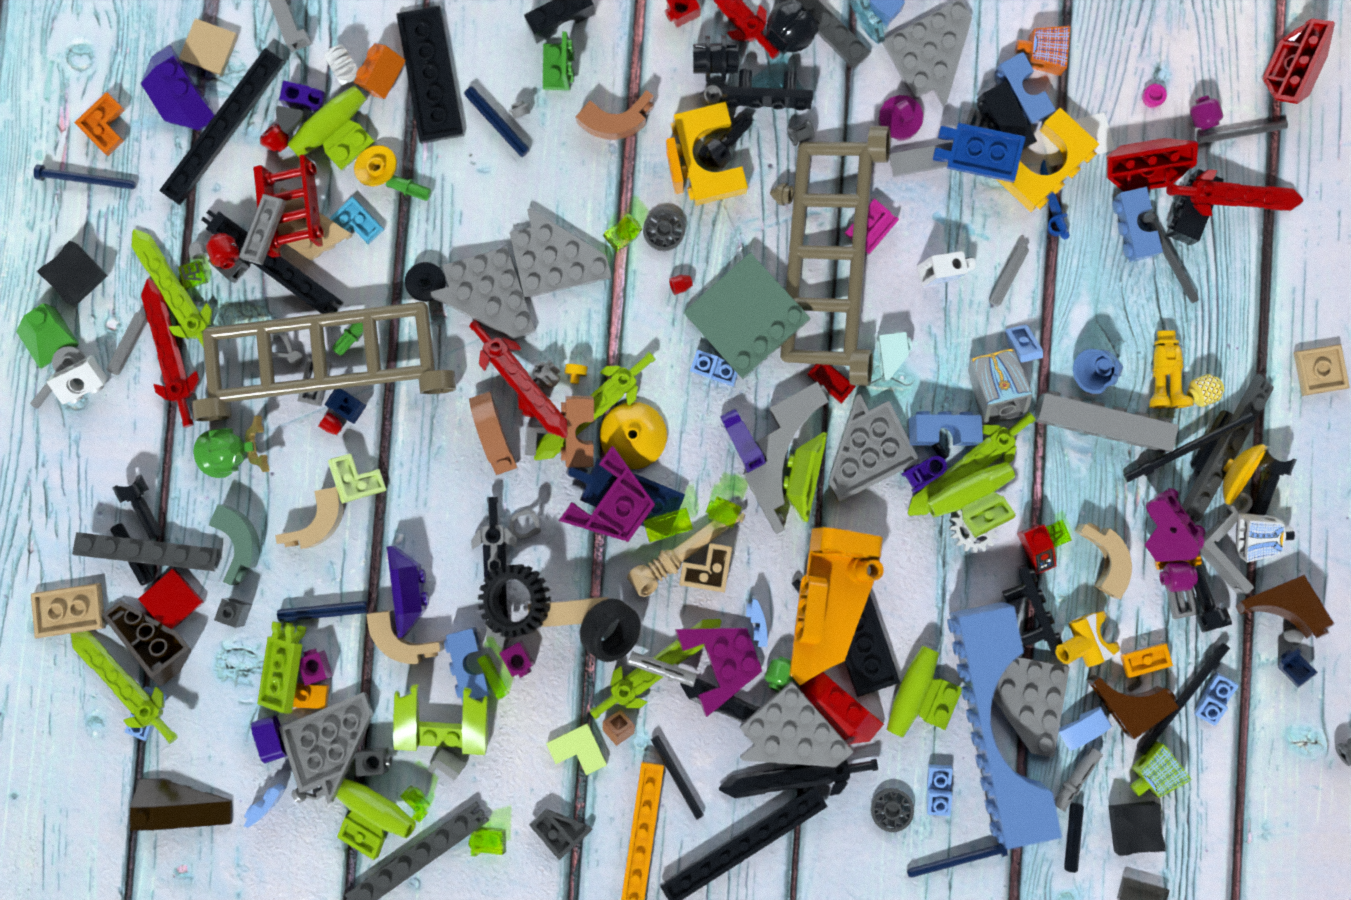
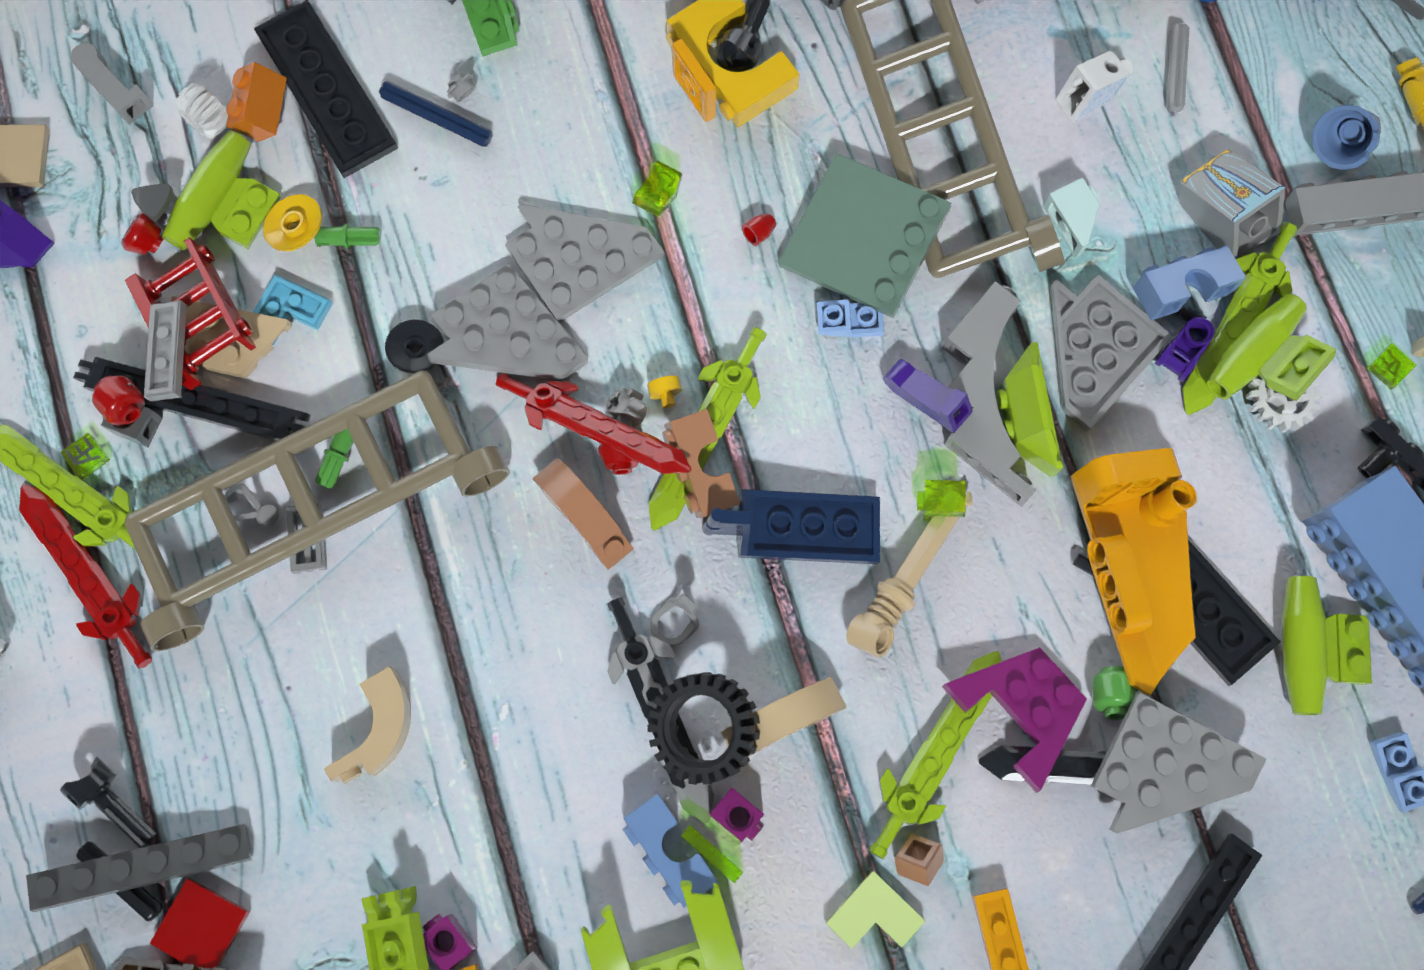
camera: 25 degrees left, 10 degrees down
(127, 343) = (19, 583): light grey axle -> none
(197, 251) = (82, 421): light grey hinge -> none
(221, 452) = (207, 680): bright green helmet -> none
(222, 126) = (63, 249): black plate -> none
(232, 612) = (298, 907): dark grey brick -> none
(244, 540) = (281, 797): sand green arch -> none
(301, 96) = (161, 169): dark purple leg -> none
(322, 611) = (429, 856): dark blue axle -> none
(331, 424) = (349, 586): red hose -> none
(345, 405) = (361, 551): dark blue bracket -> none
(350, 484) = (409, 656): yellowish green tile -> none
(384, 634) = (538, 858): tan arch -> none
(407, 589) = (542, 777): dark purple wedge -> none
(531, 437) = (638, 499): light grey tile -> none
(597, 622) = (835, 713): black tyre -> none
(615, 126) = (593, 64): nougat arch -> none
(621, 507) = (802, 542): magenta wing -> none
(650, 434) = (771, 467): yellow dish -> none
(663, 230) = (709, 170): dark grey wheel -> none
(663, 669) = (949, 748): light grey pin -> none
(667, 524) = (873, 544): clear neon green tile -> none
(678, 779) = (1032, 899): black bar -> none
(711, 575) = (963, 586): tan brick -> none
(756, 615) = (1046, 622): light blue slope -> none
(782, 194) = (845, 70): dark tan plate -> none
(794, 777) = (1195, 833): black sword -> none
(835, 383) = (1022, 280): red tile -> none
(841, 710) = (1221, 706): red wedge -> none
(878, 225) = (988, 62): dark pink plate -> none
(892, 810) = (1351, 826): dark grey wheel -> none
(1024, 343) = (1240, 138): light blue slope -> none
(1038, 548) = (1379, 389): red slope -> none

